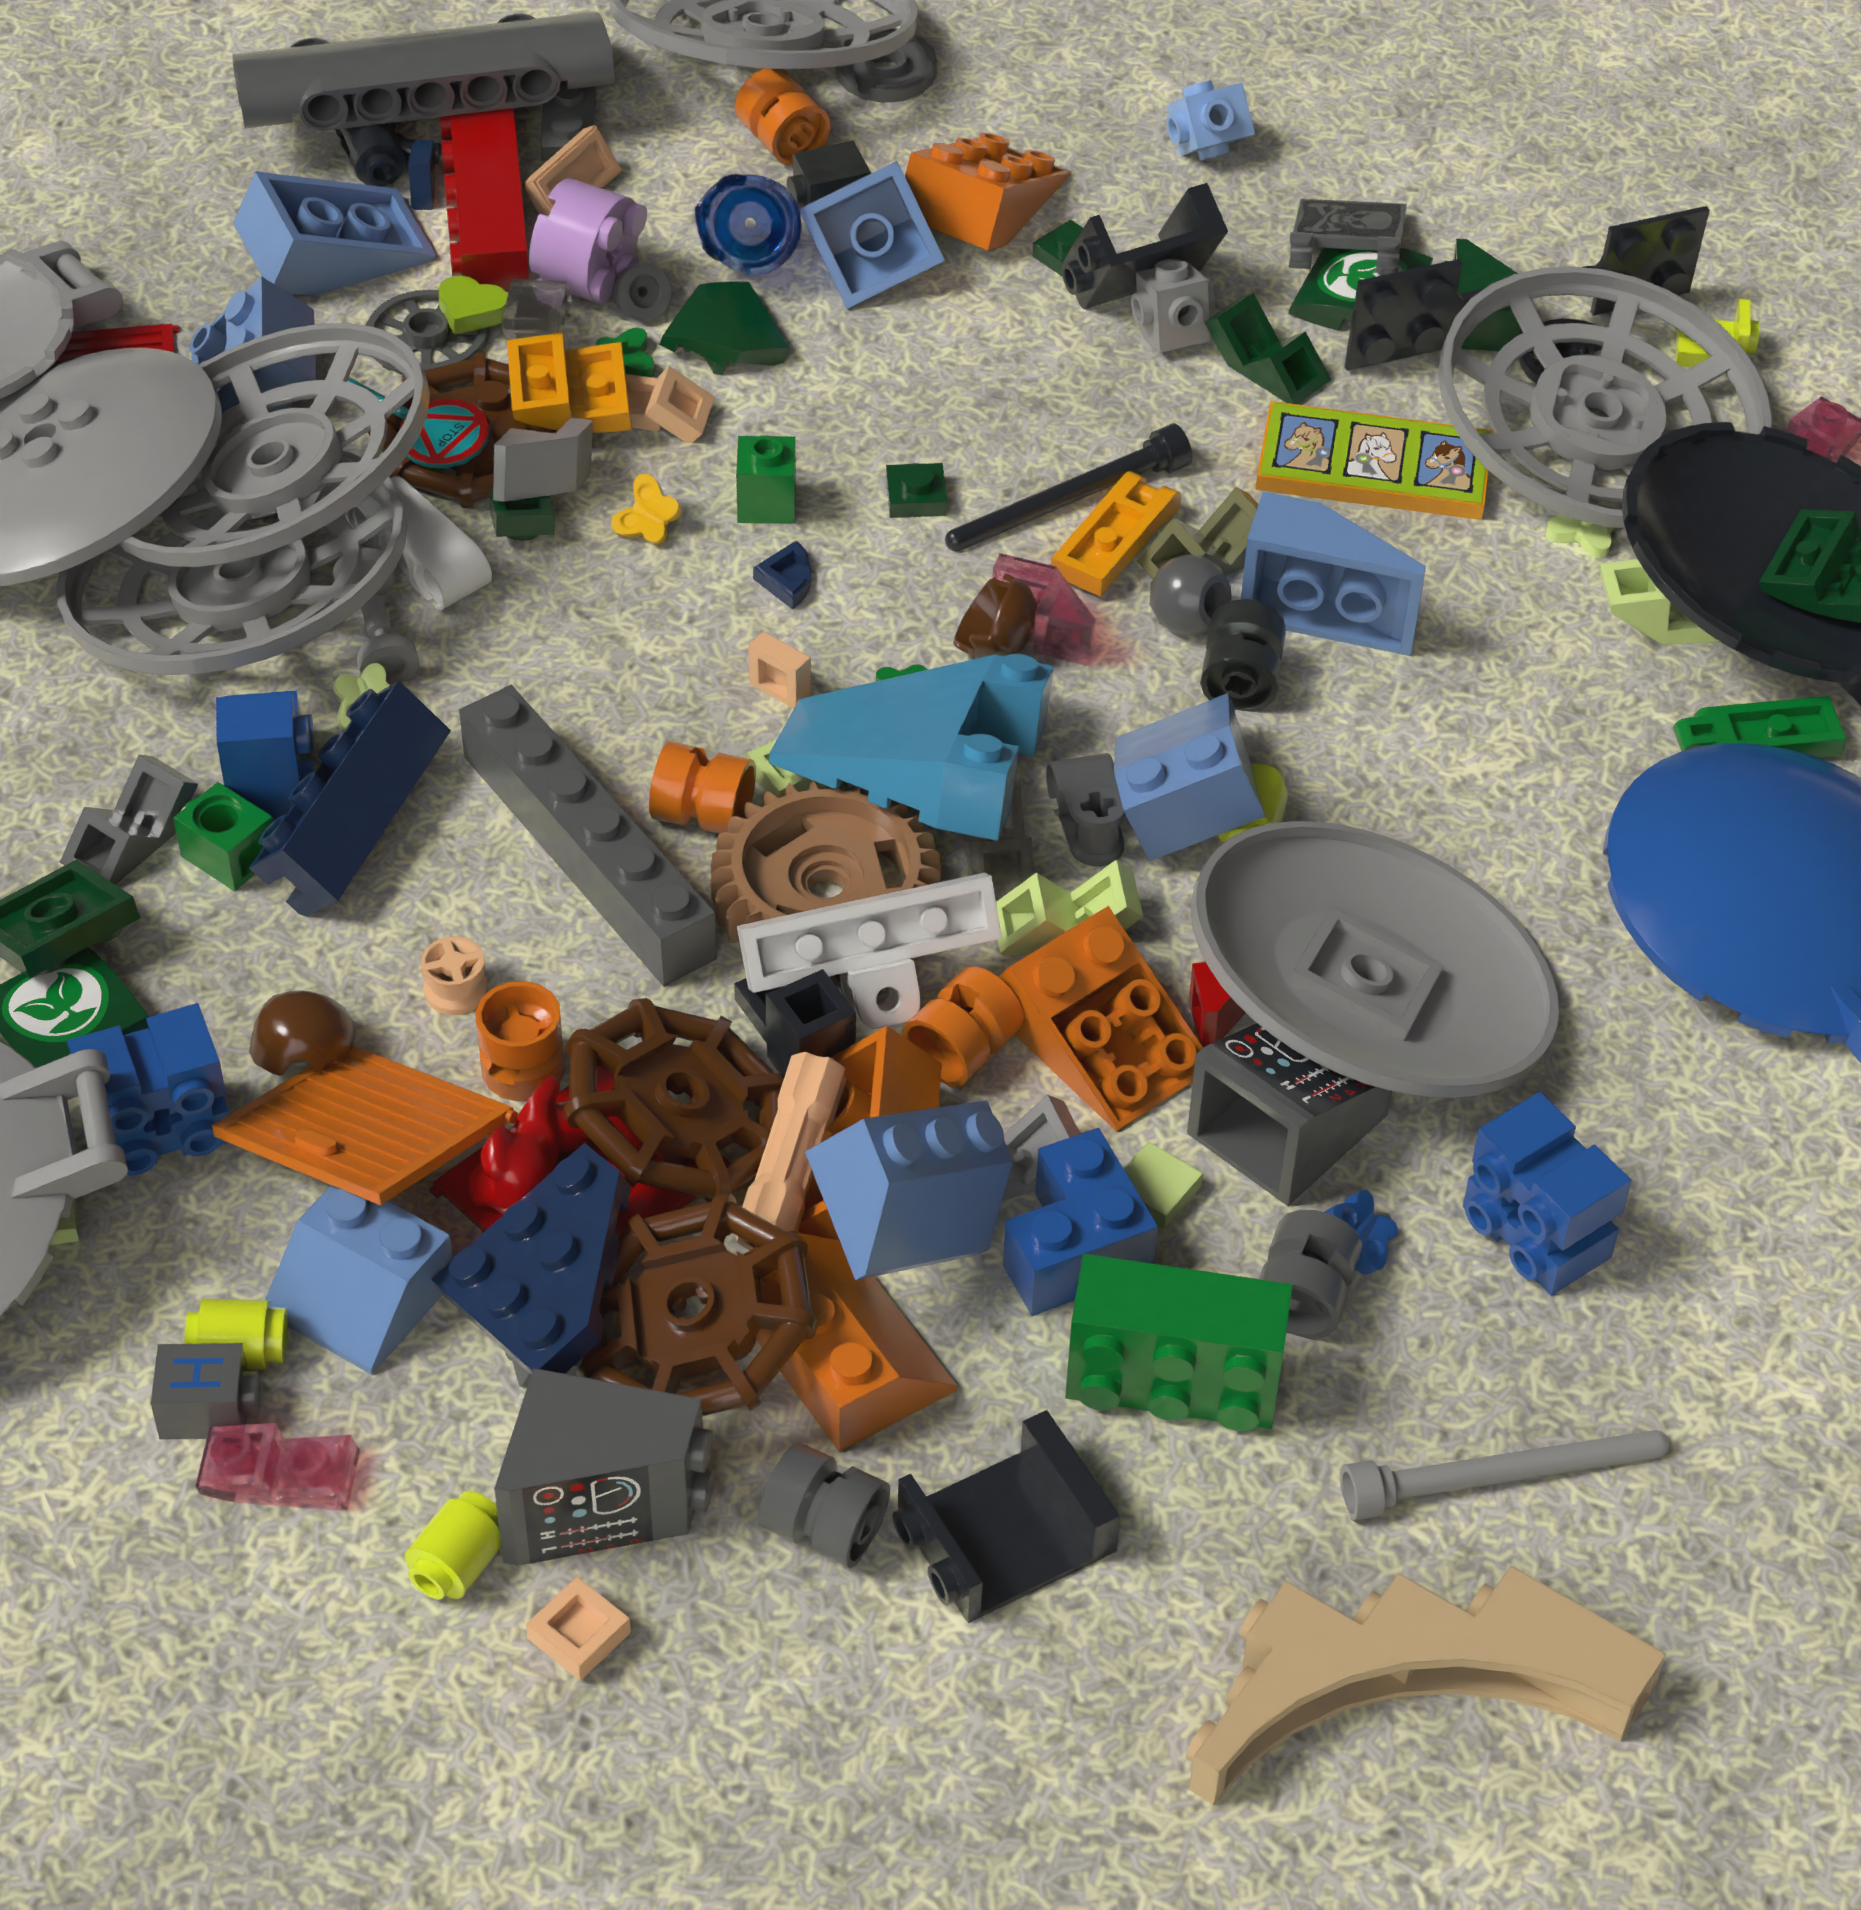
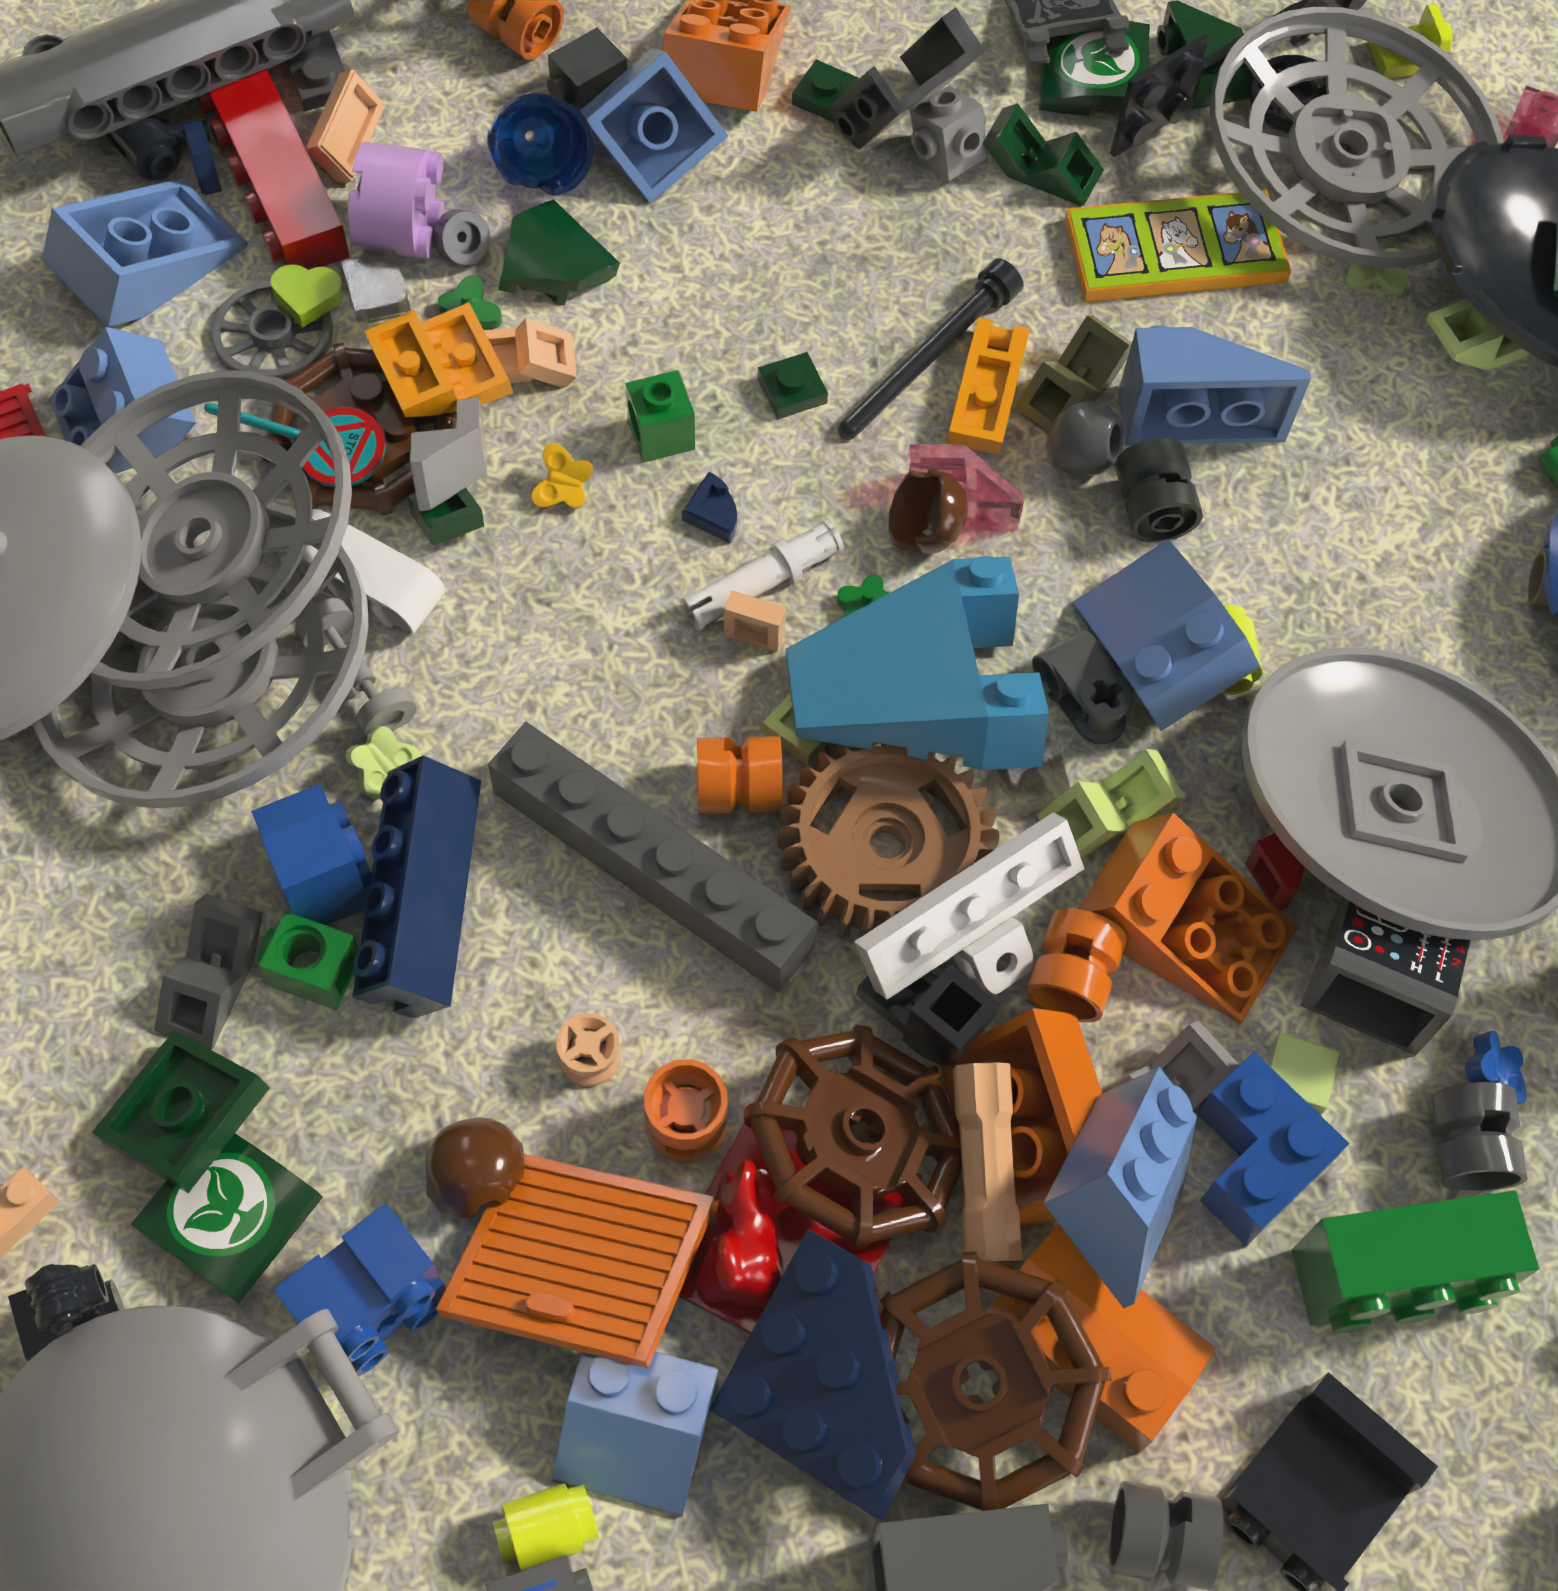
camera: 20 degrees left, 15 degrees up
(821, 634) = (783, 563): none -> white pin

